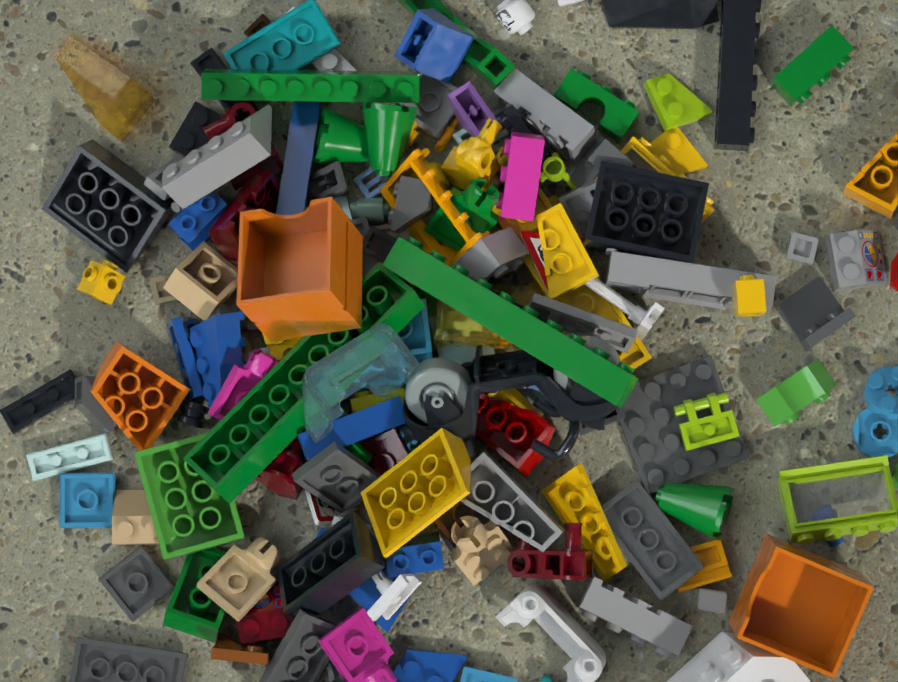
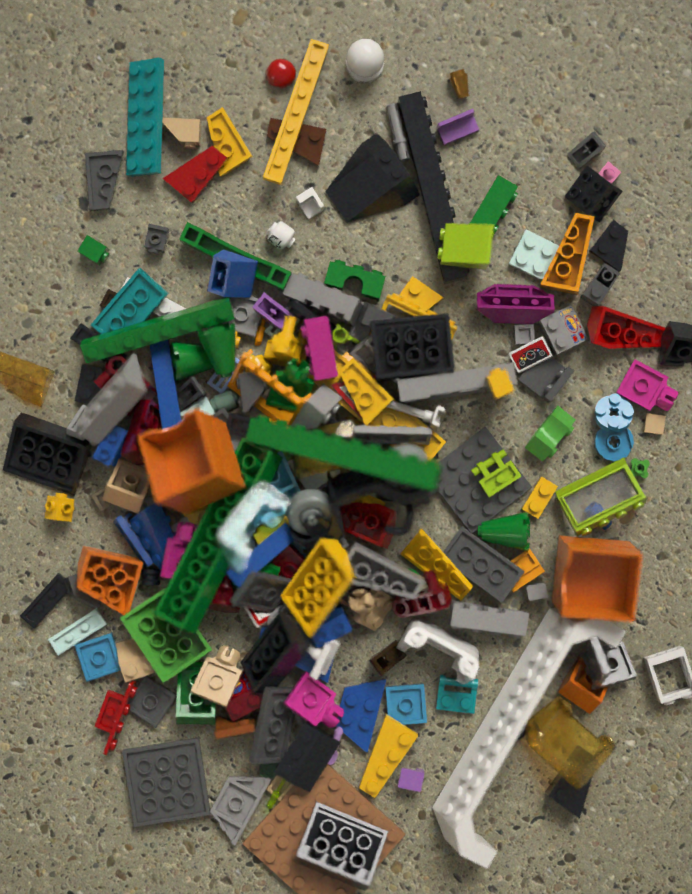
camera: 20 degrees left, 5 degrees up
(80, 582) = (112, 714): none -> red bracket
(479, 626) = (387, 658): none -> dark brown slope
(674, 102) = (407, 261): lime wing -> none
(755, 475) = (539, 497): none -> yellow plate
(760, 102) = (466, 245): none -> lime slope
(802, 203) = (515, 303): none -> magenta wedge
(802, 277) = (530, 354): none -> slope
(846, 147) = (533, 255): none -> light aqua plate

